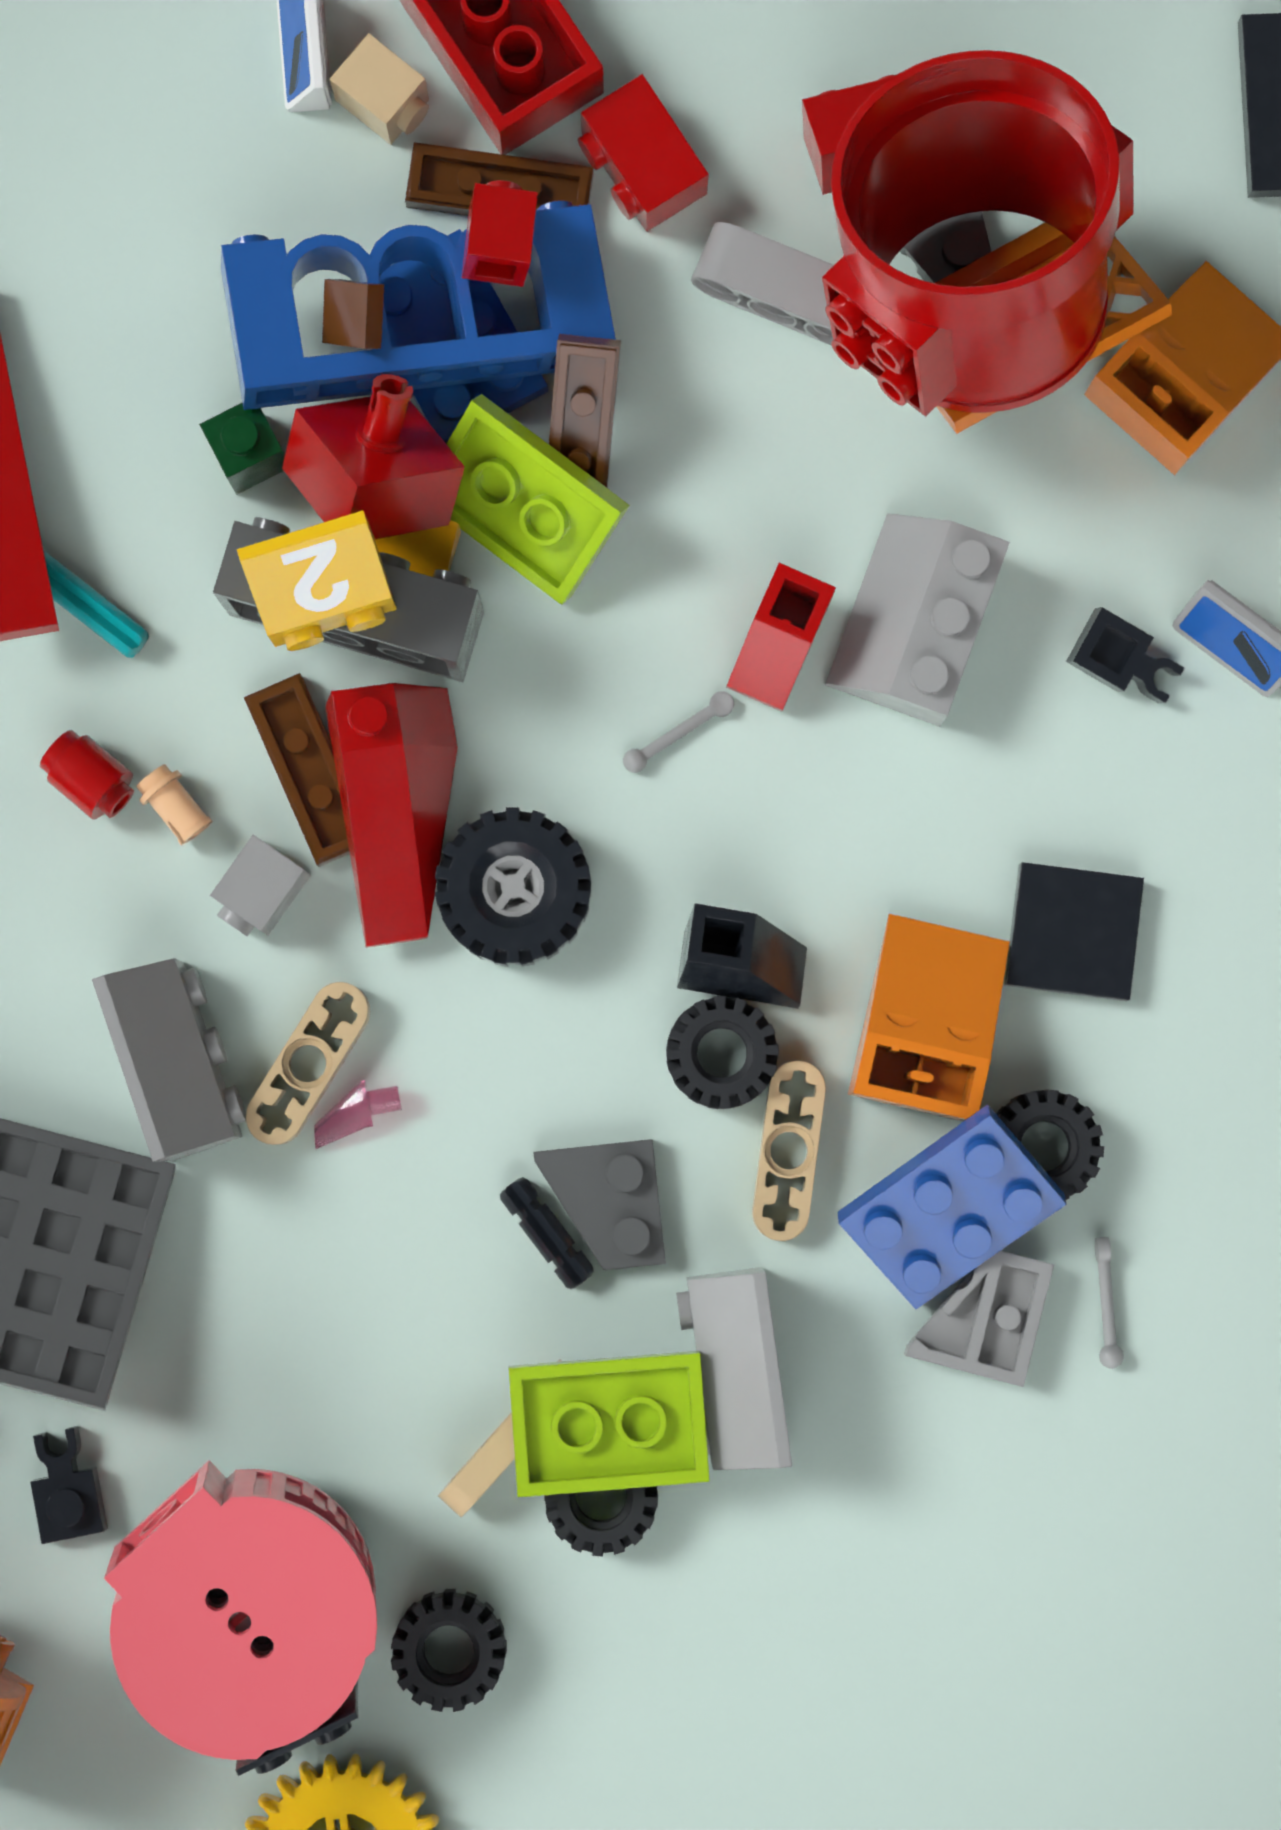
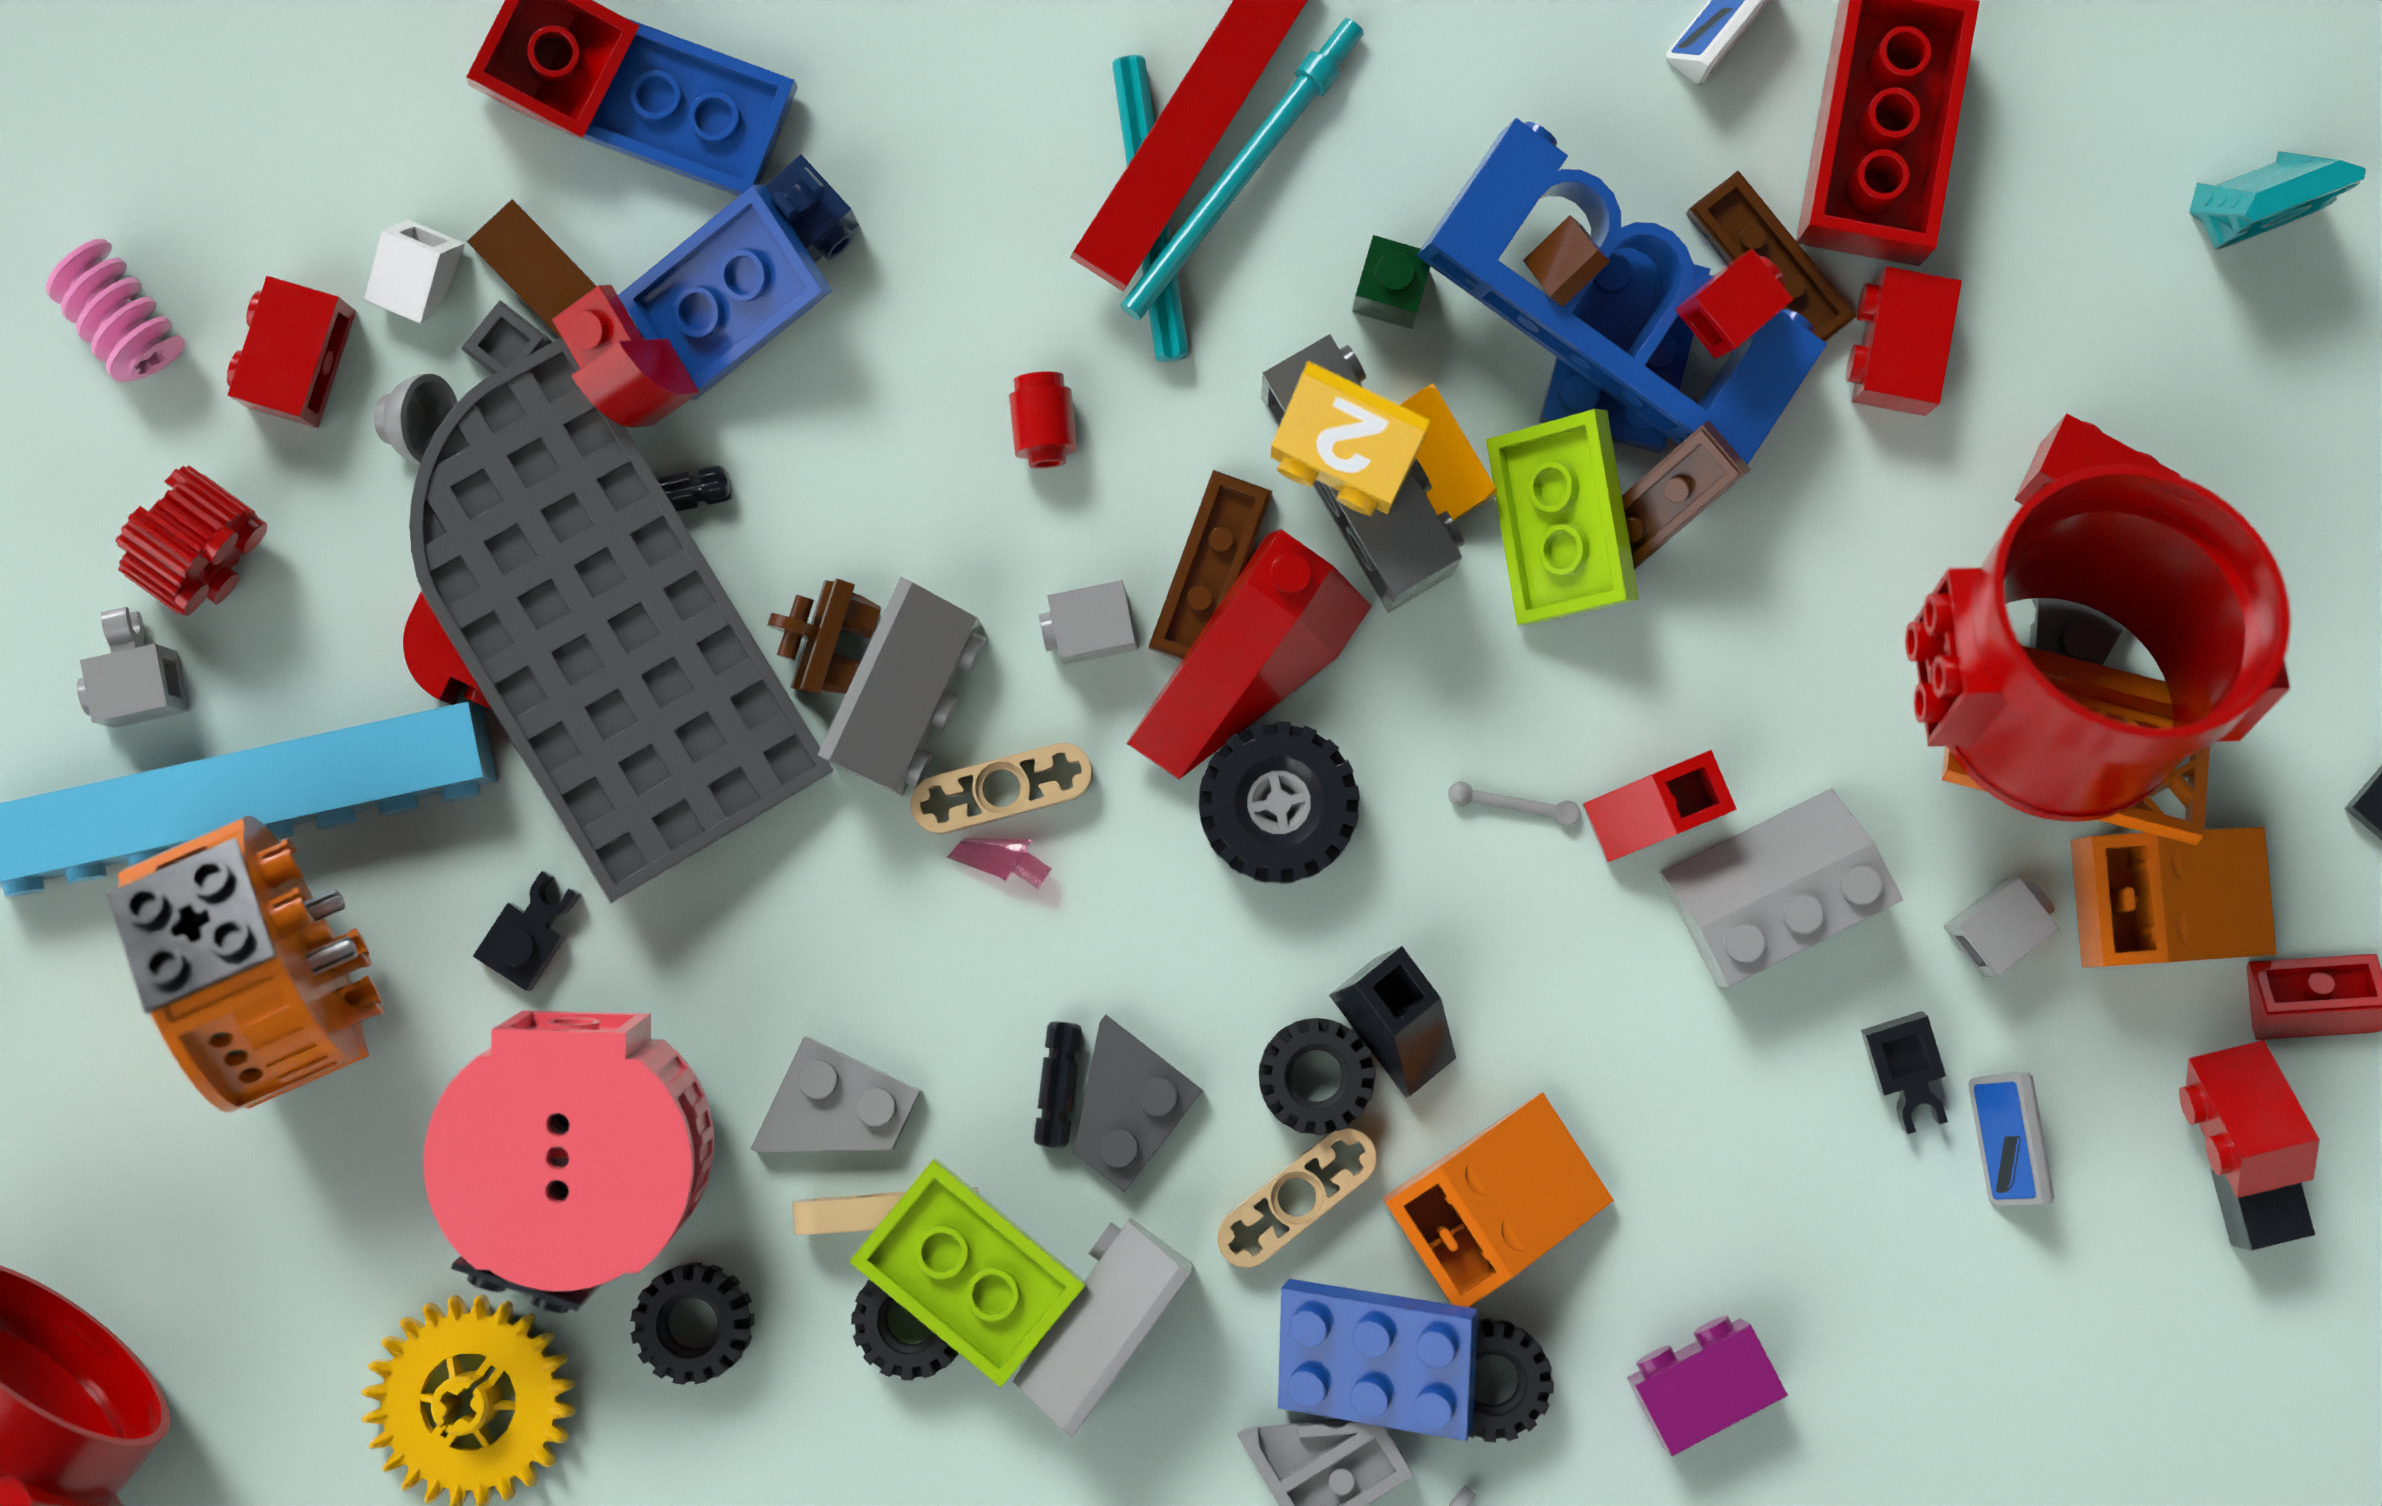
camera: 55 degrees right, 0 degrees up
(52, 353) = (1314, 78): none -> teal bar
(69, 1050) = (835, 611): none -> reddish brown hips
(173, 803) = (1085, 500): light nougat pin -> none
(374, 459) = (1476, 386): red brick -> none
(381, 90) = (1750, 108): tan brick -> none
(403, 1399) = (834, 1105): none -> light grey wing
(765, 279) = (1907, 523): light grey beam -> none
(1074, 931) = (1670, 1240): black tile -> none
(1094, 496) = (2003, 925): none -> light grey brick
(1192, 1007) = (1705, 1383): none -> magenta brick

